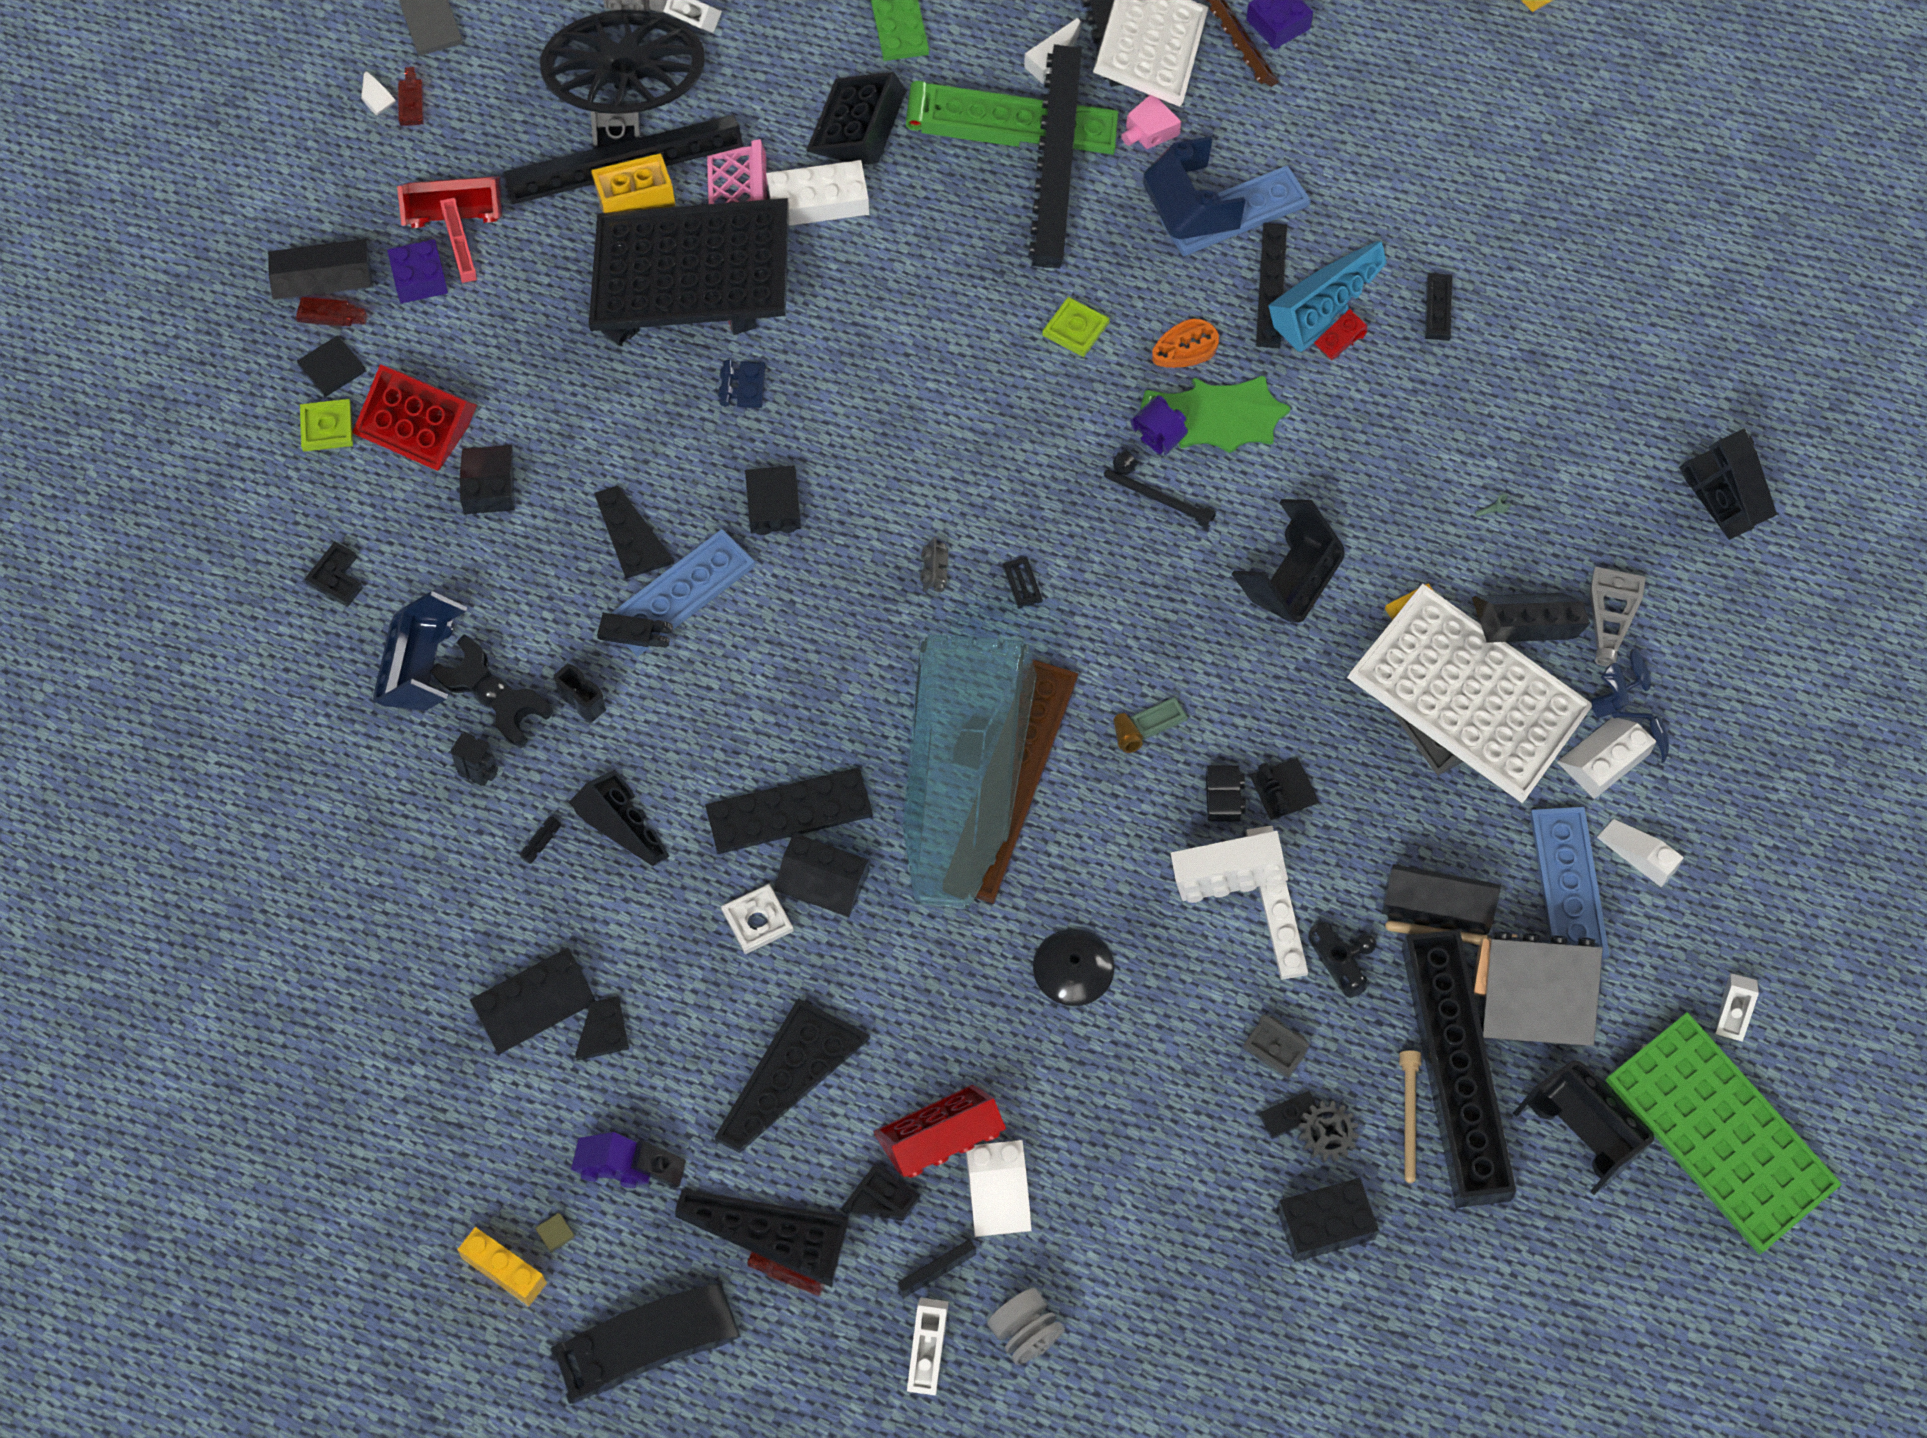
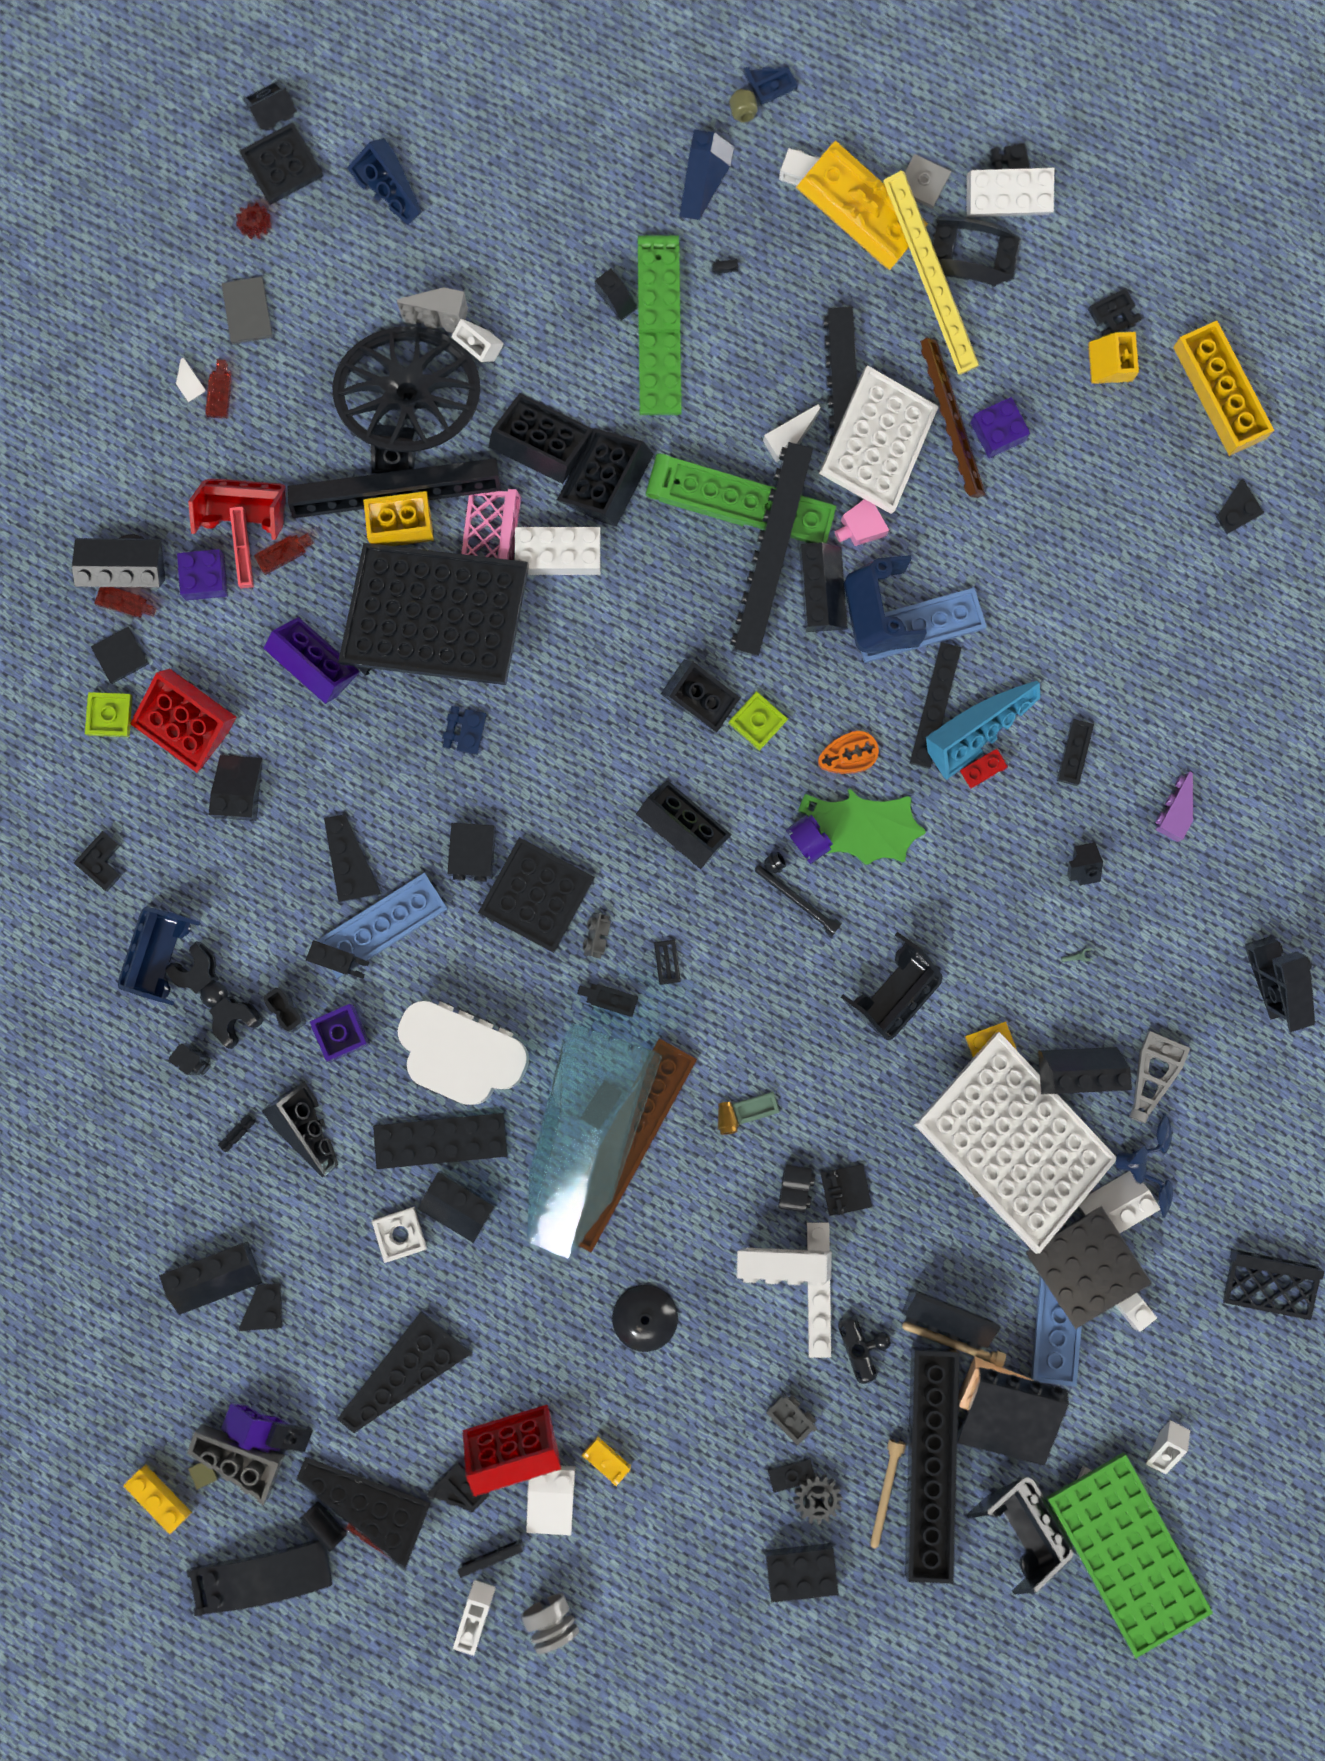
camera: 10 degrees right, 20 degrees up
(505, 239) = (282, 552): none -> clear red hinge
(553, 338) = (310, 659): none -> dark purple slope
(599, 1202) = (249, 1469): none -> dark grey wedge
(650, 707) = (339, 1033): none -> dark purple brick
(717, 1267) = (323, 1526): none -> black tile
(776, 94) = (539, 438): none -> black slope
(798, 704) = (458, 1054): none -> white brick
(856, 535) = (536, 895): none -> black plate
(960, 625) = (609, 999): none -> black hinge
(1005, 309) = (700, 695): none -> black slope
(1011, 439) = (683, 824): none -> black slope
(1058, 1132) = (606, 1461): none -> yellow hinge
(1119, 189) = (823, 587): none -> black slope
(1479, 411) = (1086, 864): none -> black brick
(1556, 57) = (1239, 508): none -> black wing
(1569, 347) = (1179, 811): none -> medium lavender slope
(1589, 815) = (1089, 1267): none -> black plate
(1809, 788) = (1273, 1265): none -> black fence

